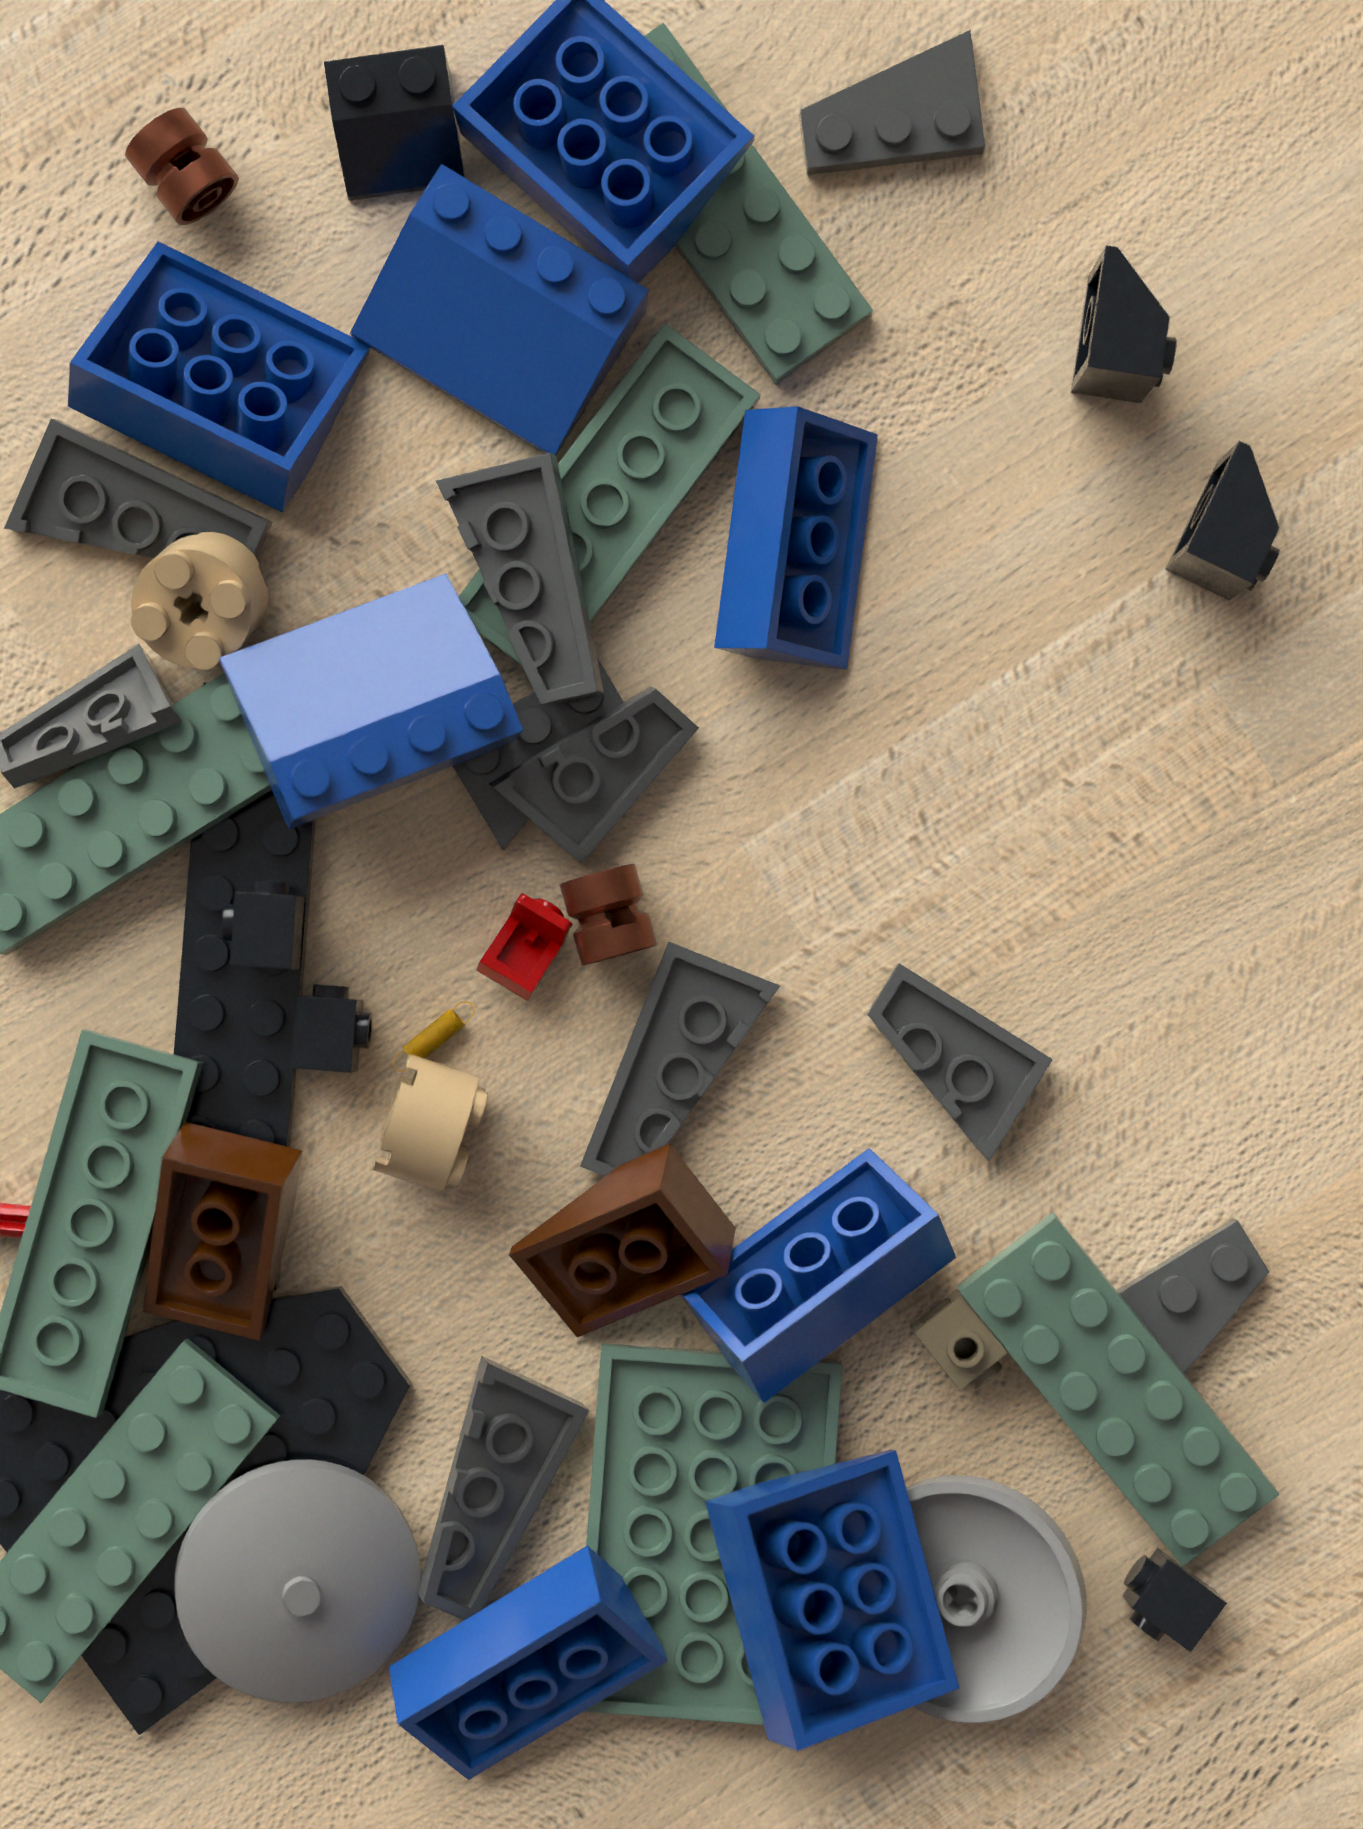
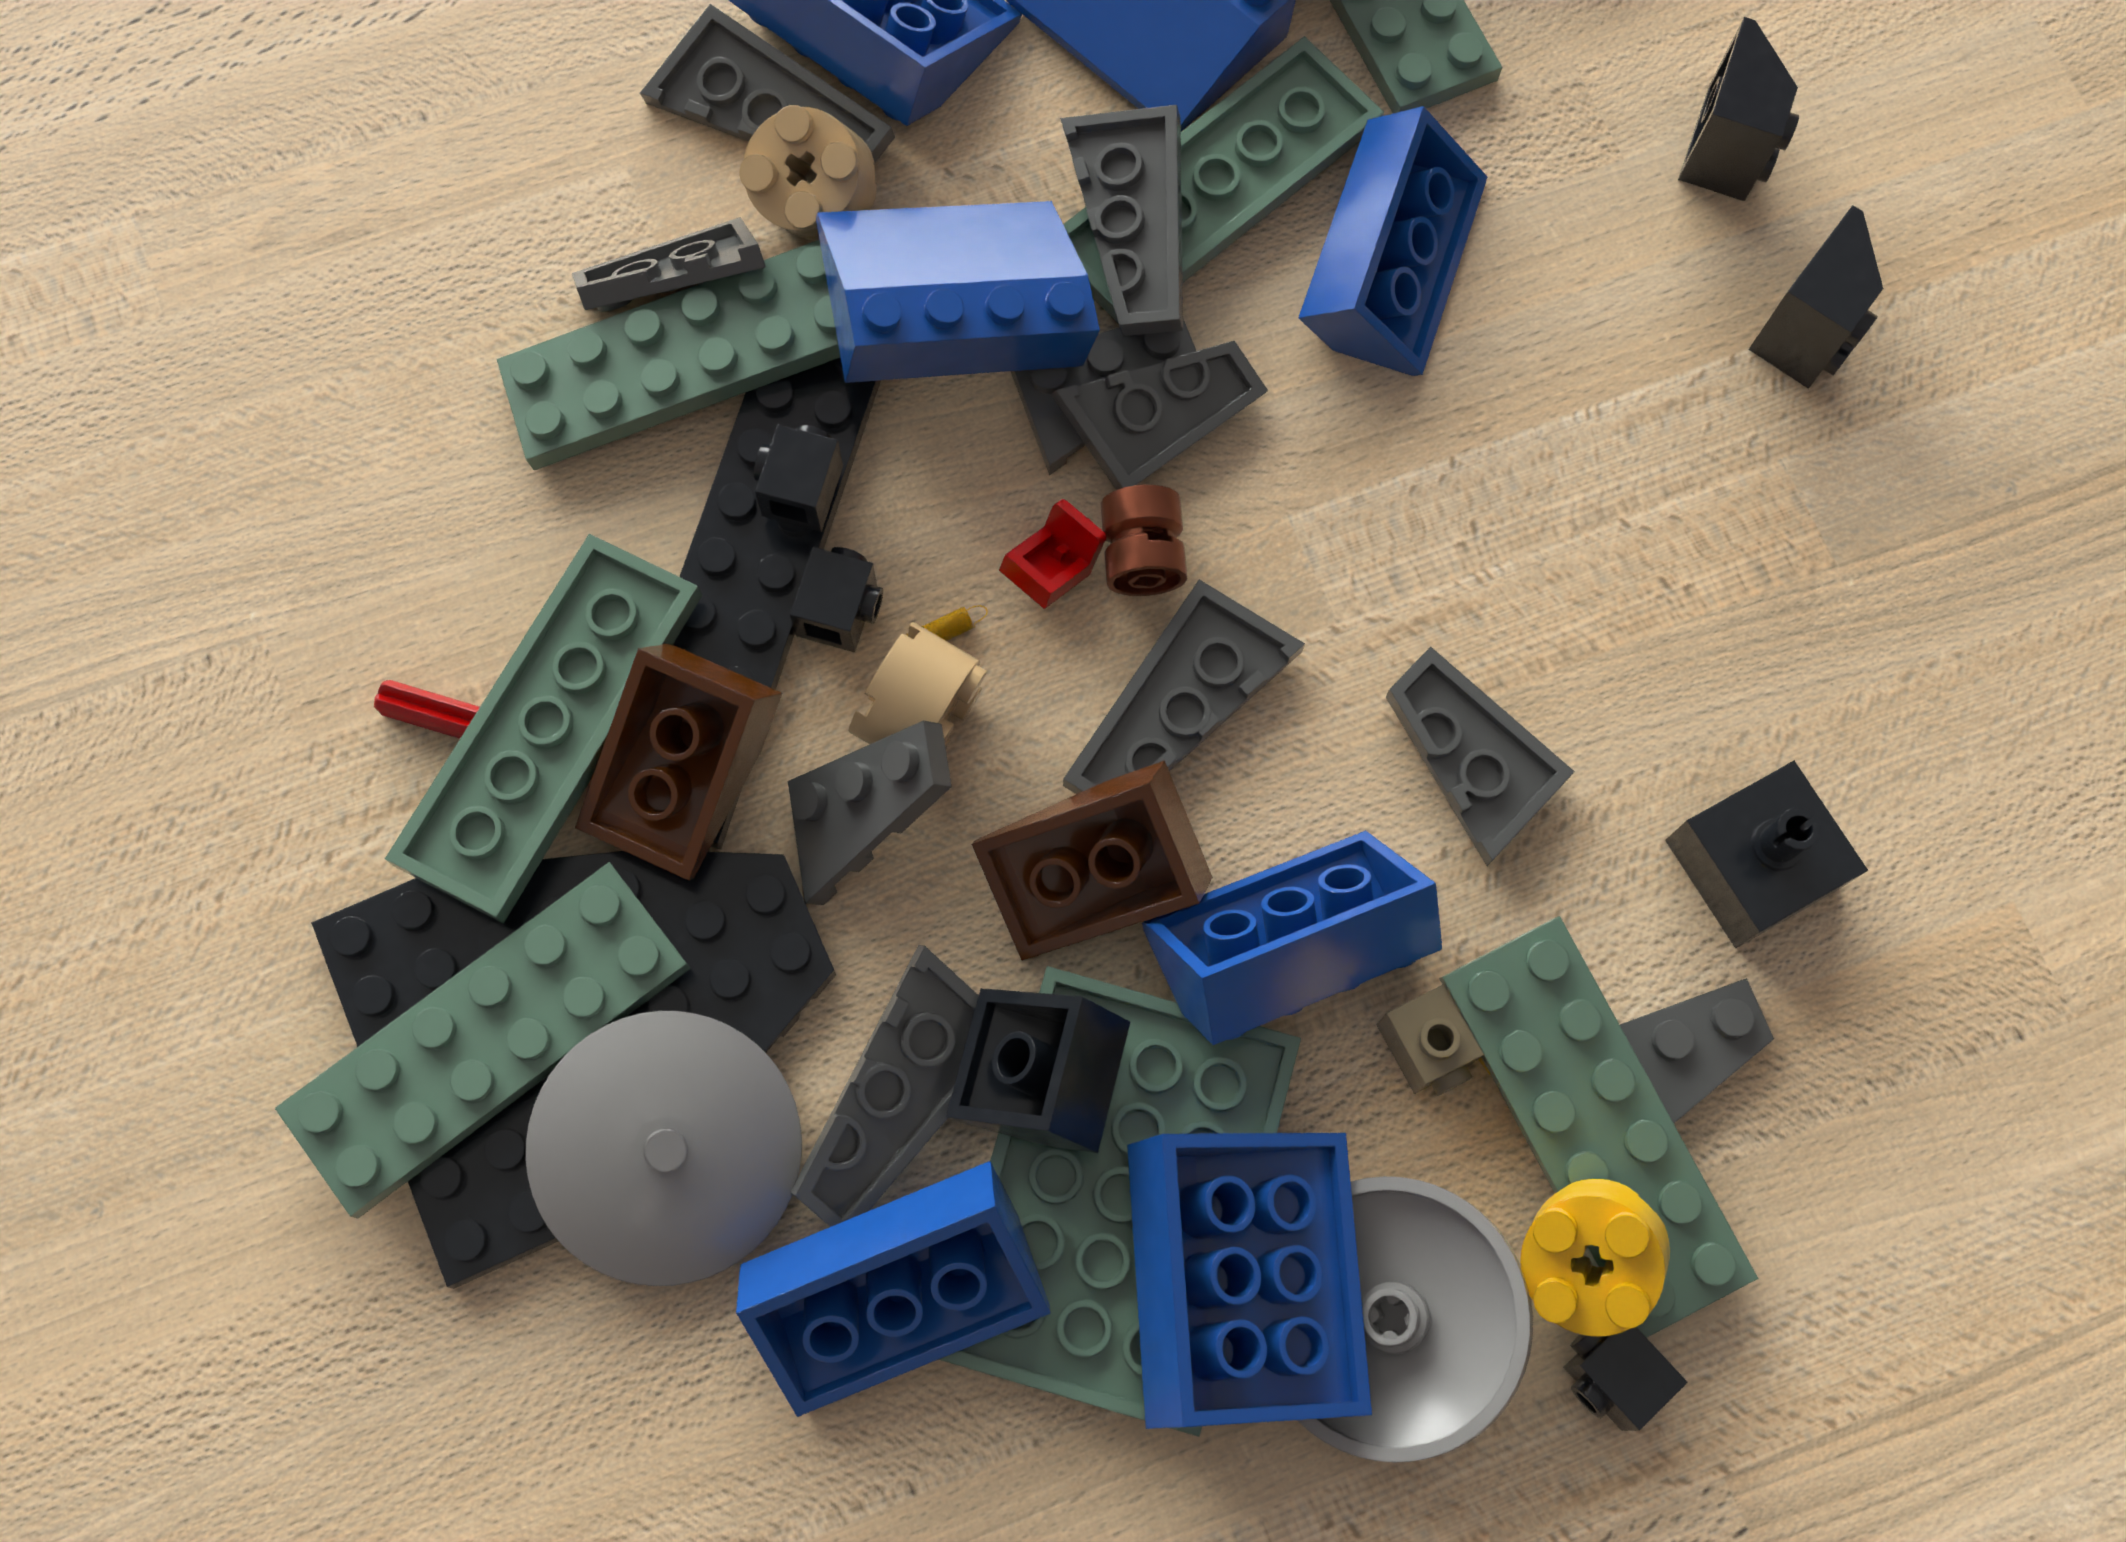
camera: 10 degrees right, 15 degrees down
(400, 1238) = (862, 799): none -> dark grey wing
(613, 1452) = (1039, 1068): none -> black slope
(1131, 1519) = (1587, 1296): none -> yellow brick
(1240, 1103) = (1765, 854): none -> black brick

